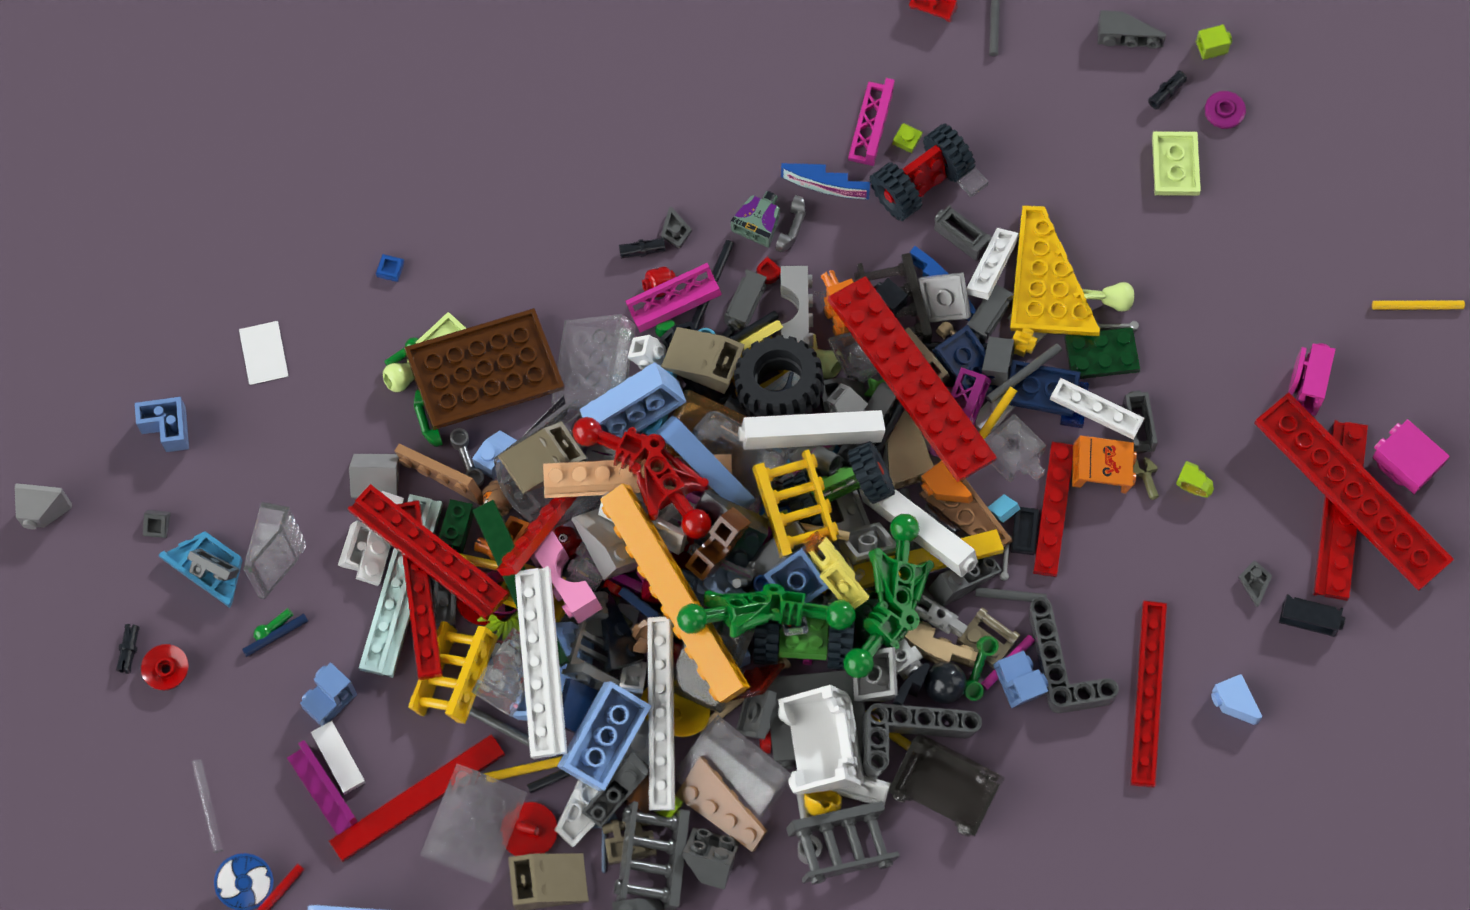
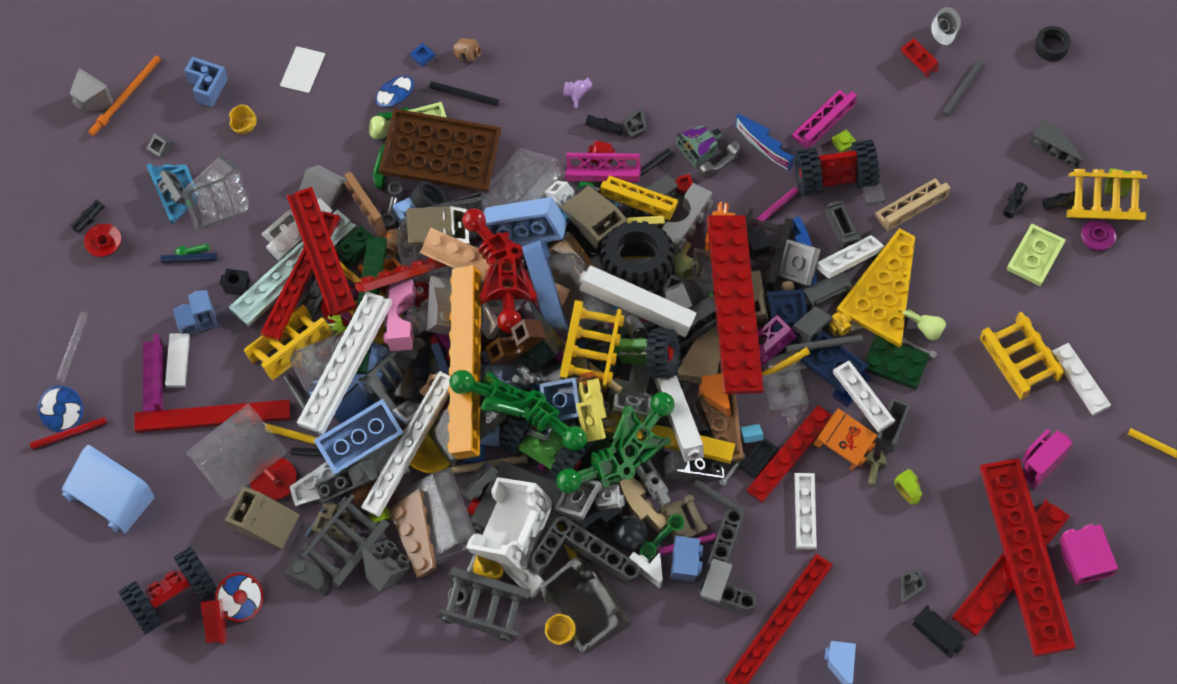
camera: 30 degrees right, 5 degrees down
(71, 528) = (103, 119): none -> orange bar
(236, 446) = (242, 119): none -> yellow hair
(357, 639) = (239, 287): none -> black brick
(388, 326) = (394, 91): none -> shield
(439, 237) = (467, 50): none -> medium nougat head
(464, 289) = (464, 93): none -> black piece
(504, 428) = (430, 190): none -> black tyre
(588, 223) = (577, 90): none -> lavender animal
(735, 315) = (637, 200): none -> yellow fence
(759, 680) = (491, 457): clear red piece -> none
(886, 226) = (776, 206): none -> dark pink bar
(936, 824) = (560, 629): none -> yellow hair
(993, 710) = (650, 571): none -> white slope
(1022, 174) = (912, 207): none -> tan fence
(1066, 685) = (716, 580): none -> light grey tile
(1105, 562) = (805, 511): none -> white tile
(1120, 114) = (1015, 200): none -> black pin
(1219, 300) = (1012, 370): none -> yellow fence
(1229, 76) = (1097, 211): none -> yellow fence
(1295, 274) = (1081, 379): none -> white plate

